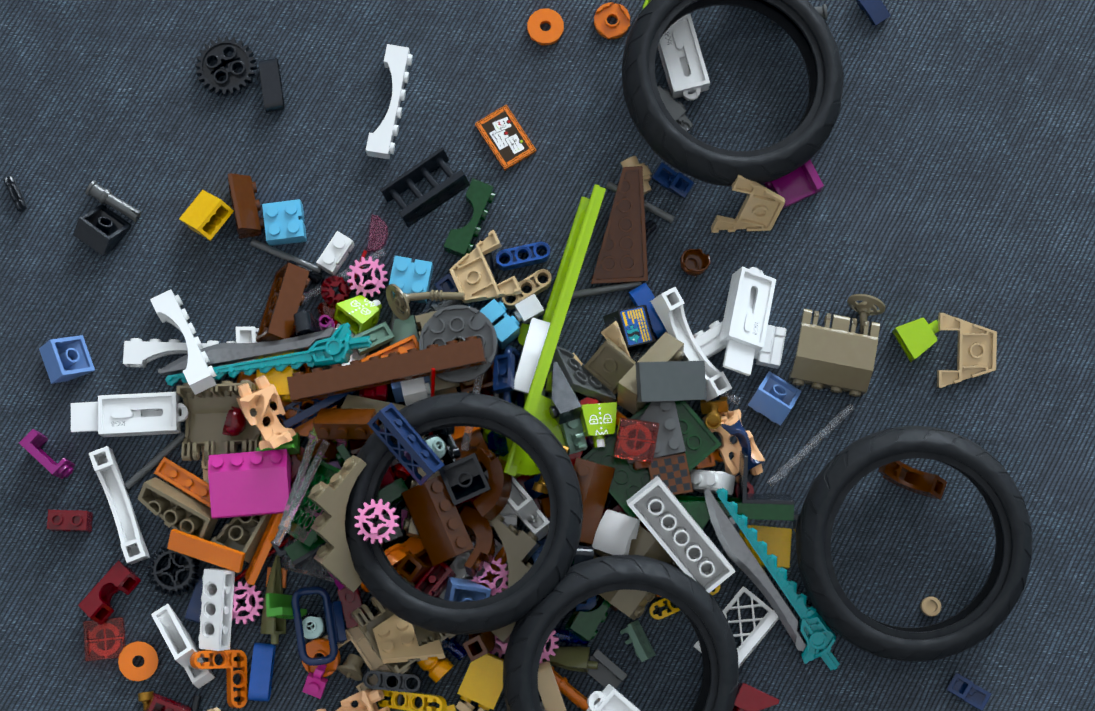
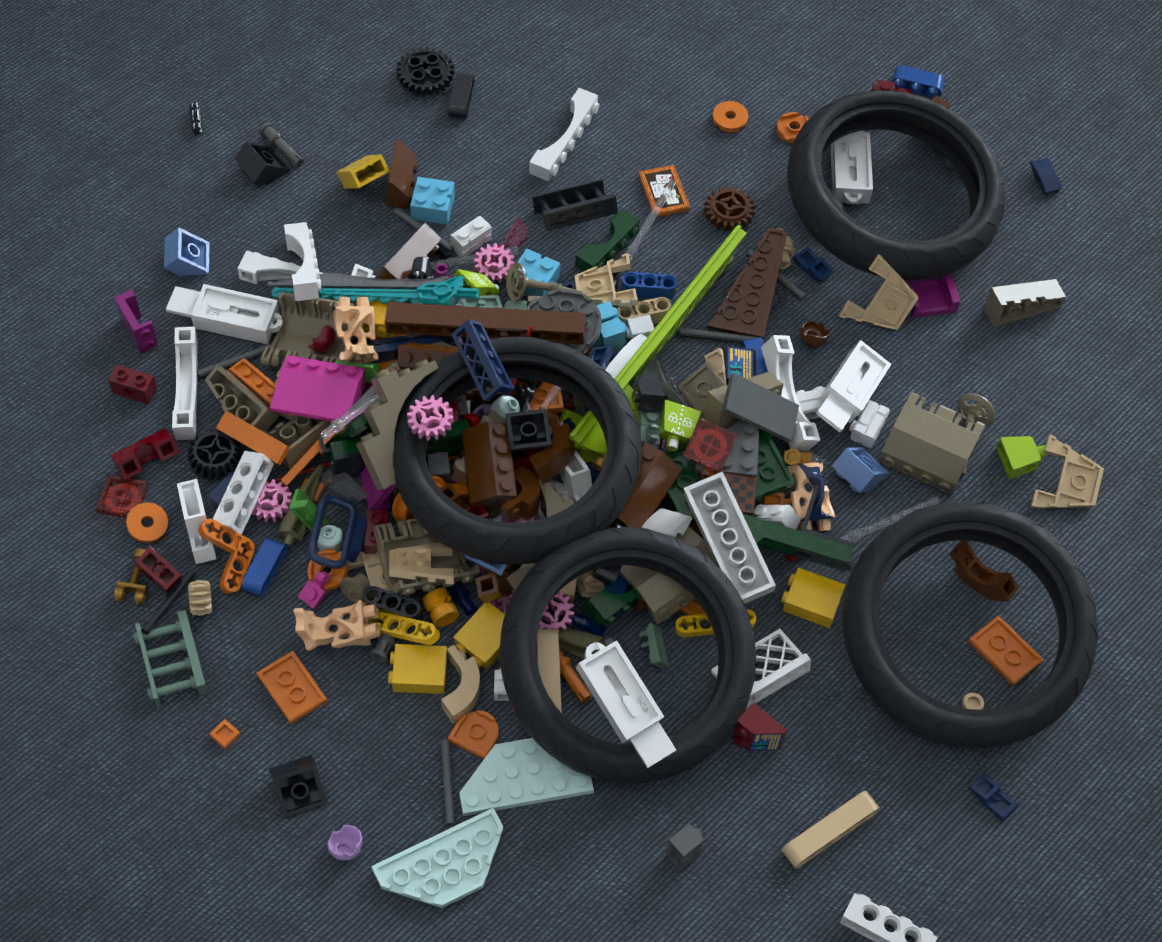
camera: 15 degrees right, 20 degrees down
(328, 293) = (454, 259): dark red gear -> none
(494, 219) = (632, 249): none -> clear bar
(593, 140) = (729, 208): none -> reddish brown gear
(813, 627) = (841, 679): piece -> none
(883, 163) = (1022, 301): none -> dark tan wedge
(947, 544) = (1005, 651): none -> orange tile

